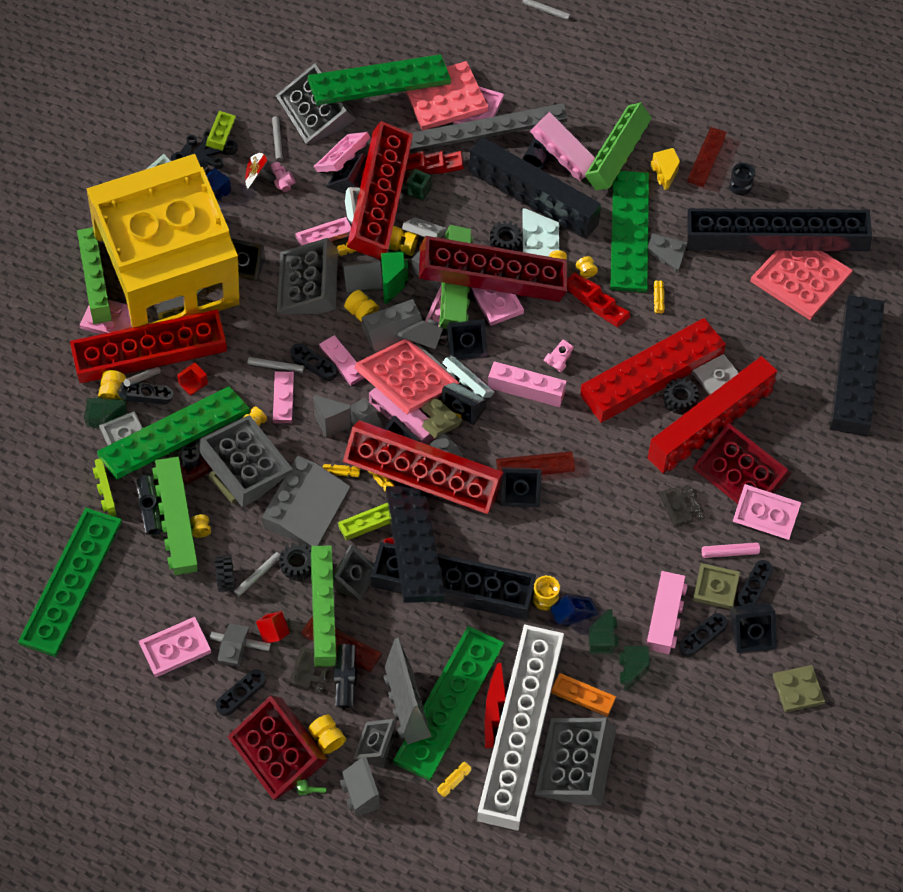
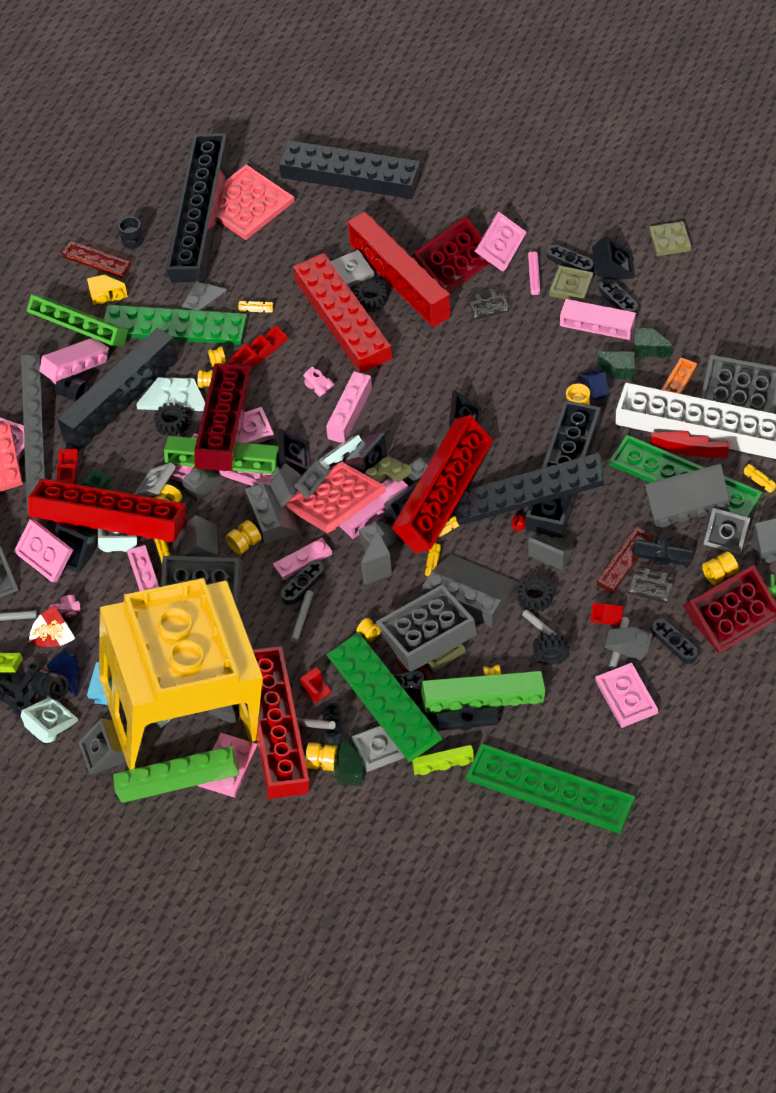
camera: 80 degrees left, 5 degrees down
(283, 397) = (342, 609): bright pink plate -> none
(323, 606) = (592, 563): bright green brick -> none
(365, 522) = (493, 539): lime plate -> none
(393, 274) = (213, 506): green slope -> none
(426, 353) = (311, 479): none -> dark grey plate
(548, 463) = (437, 406): clear red plate -> none

